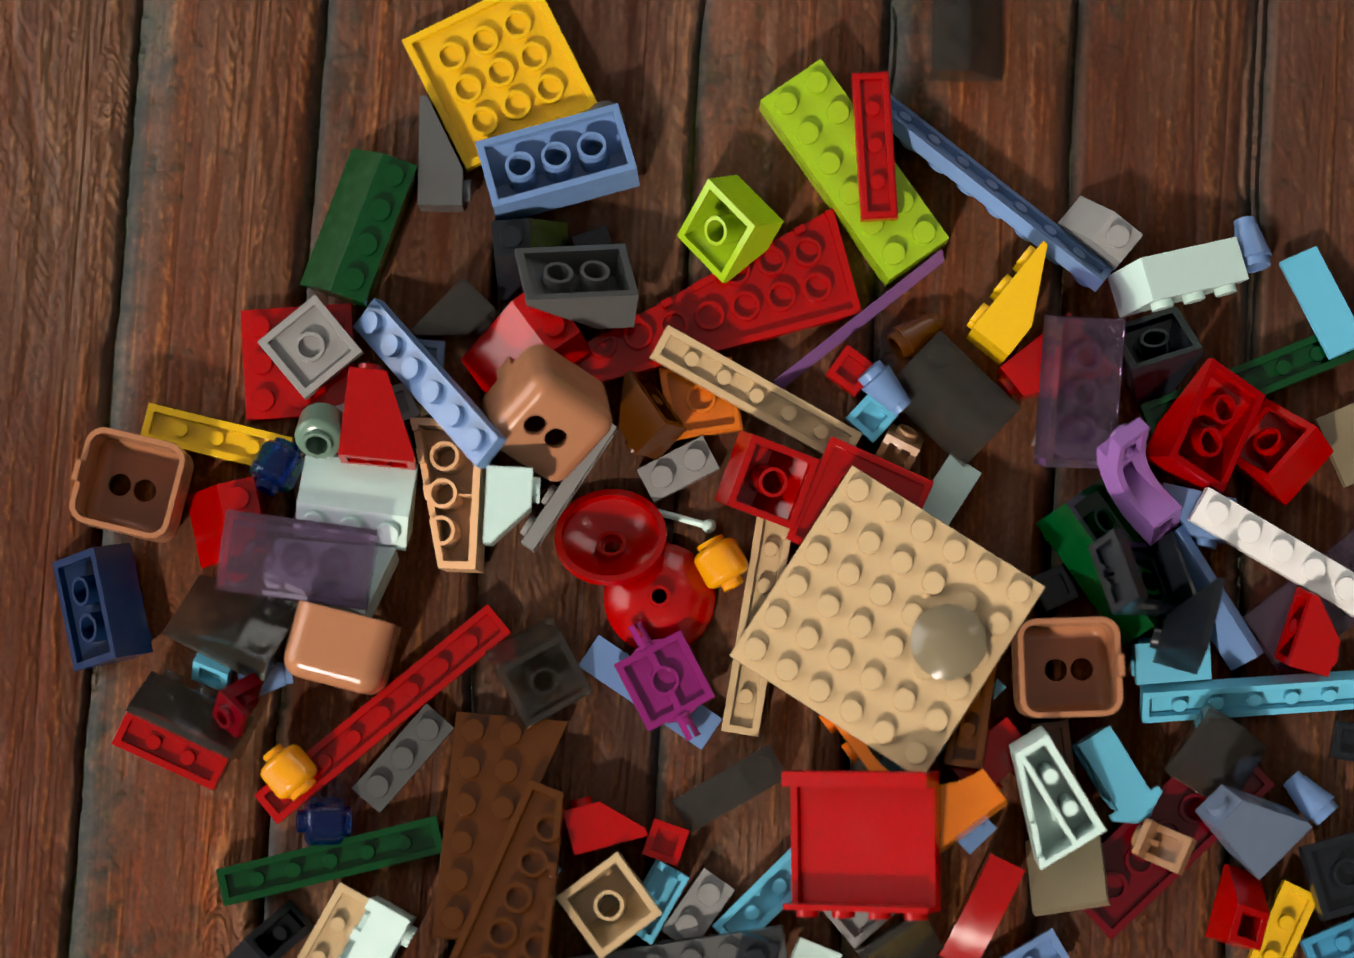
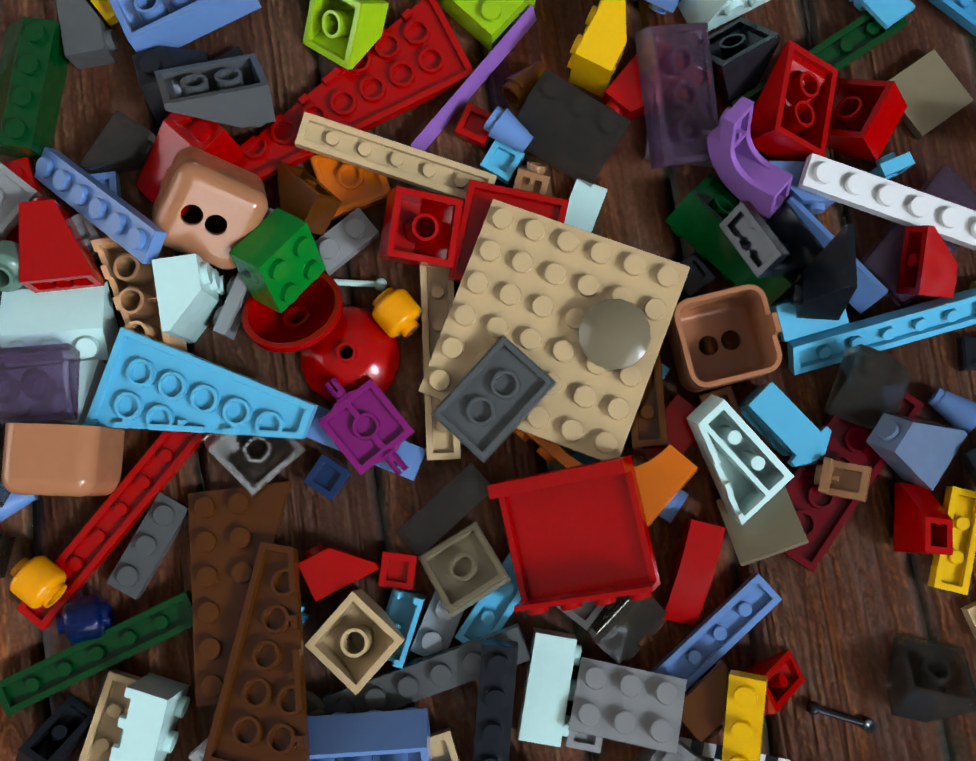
camera: 15 degrees left, 0 degrees up
(473, 601) = (177, 391): none -> medium azure wing
(608, 483) = (278, 260): none -> green brick
(610, 725) = (327, 477): none -> dark blue plate
(737, 855) = (464, 569): none -> dark tan tile
(808, 682) = (493, 398): none -> dark grey tile
(1300, 514) = (892, 165): none -> medium azure plate

